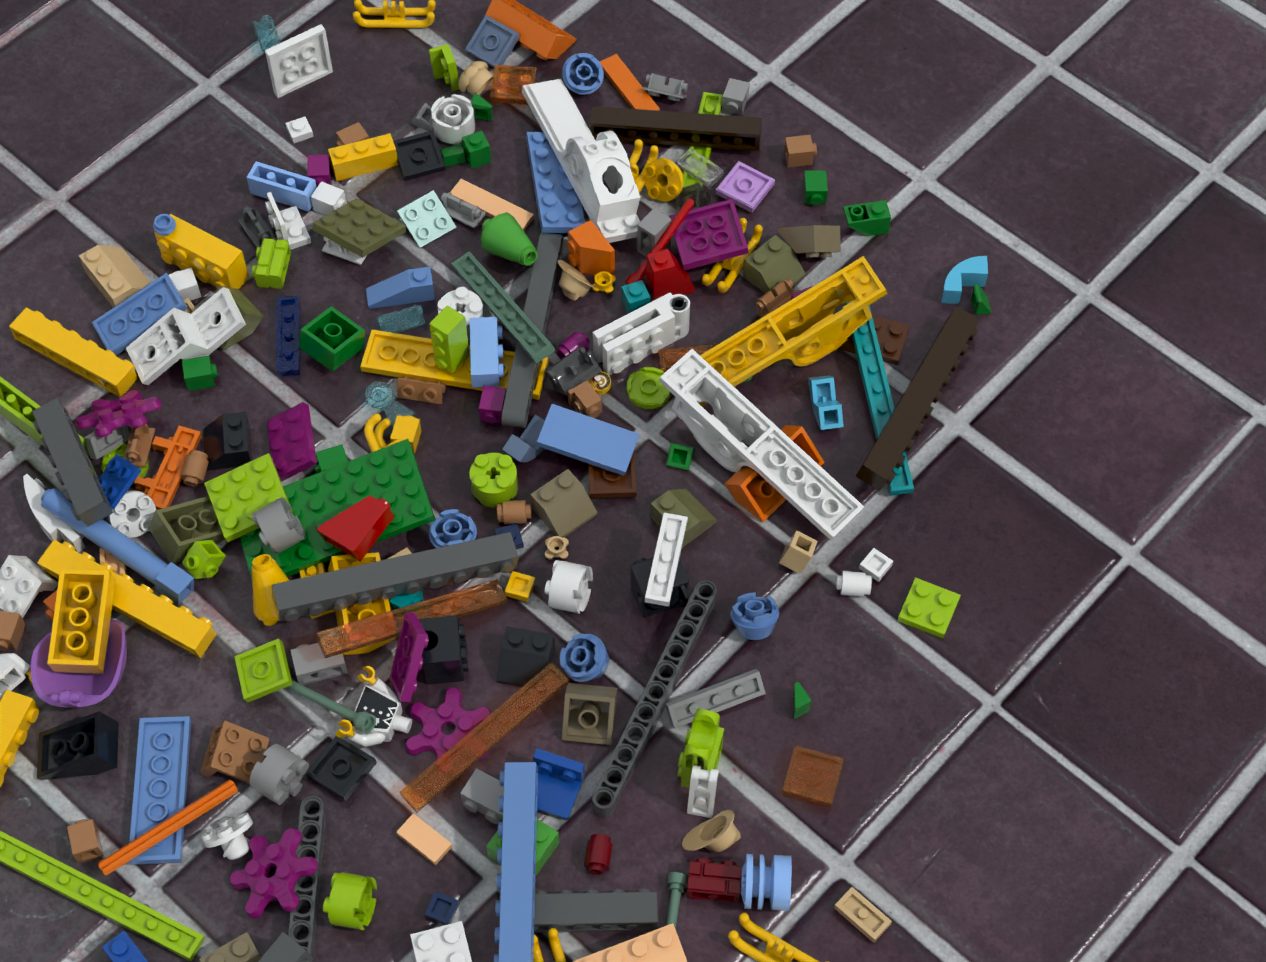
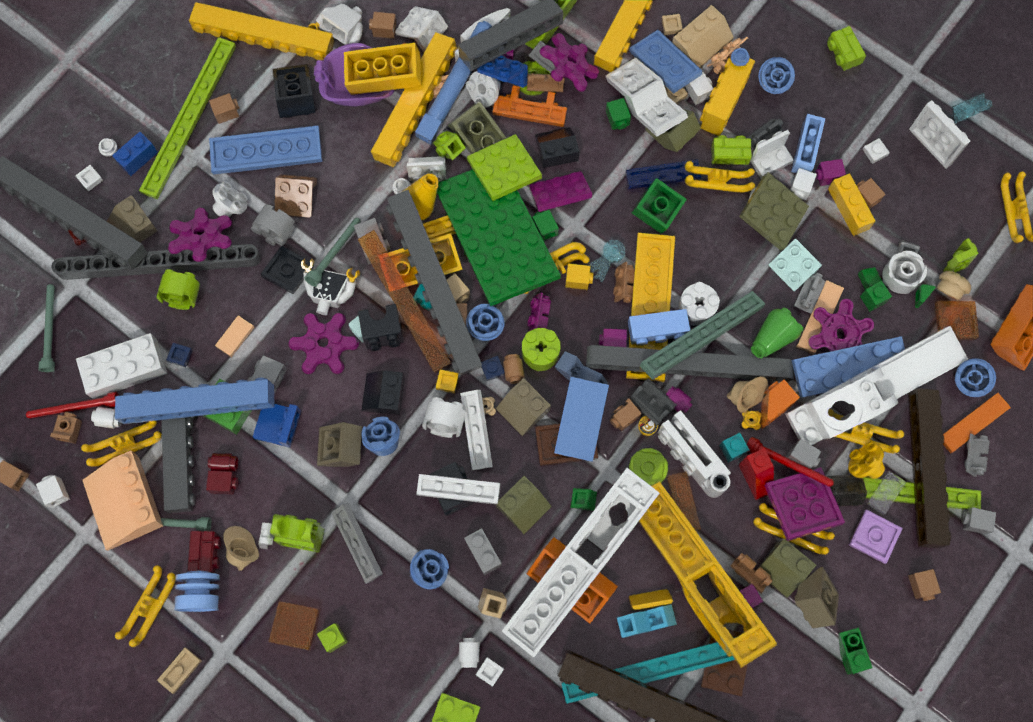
camera: 85 degrees right, 15 degrees up
(89, 306) = (671, 24): none -> tan plate
(146, 251) = (720, 59): none -> light nougat hinge
(165, 137) = (846, 48): none -> lime brick
(167, 827) = (232, 159): orange axle -> none
(188, 203) = (776, 75): none -> medium blue cone
(194, 468) = (529, 125): medium nougat brick -> none
(228, 590) = (421, 166): none -> white bracket
(248, 624) = (399, 185): none -> white plate
(263, 670) = (361, 203): lime plate -> none
(278, 525) = (471, 190): light grey brick -> none
(305, 277) = (717, 178): none -> yellow piece
(357, 527) = (472, 247): red slope -> none
(402, 320) = (689, 258): clear light blue hinge -> none
(403, 288) = (720, 255): medium blue slope -> none
(408, 657) = (366, 301): magenta plate -> none
(419, 155) = (863, 250): black plate -> none
(437, 683) = (354, 326): none -> light aqua slope
(446, 483) = (539, 305): none -> magenta hinge
(449, 339) = (656, 292): lime brick -> none
(483, 737) = (312, 369): clear orange plate -> none
(492, 42) = (1000, 295): sand blue tile -> none
(501, 182) = (843, 320): none -> magenta plate
(588, 554) = (476, 430): none -> white plate
(624, 856) = (221, 482): none -> dark red brick
(652, 706) = (346, 494): dark grey beam -> none
(736, 559) = (483, 551): none -> light grey brick
(801, 398) = (650, 600): none -> yellow slope
(801, 701) = (358, 612): green slope -> none
(815, 187) = (883, 601): green brick -> none
(830, 729) = (332, 638): none -> lime brick

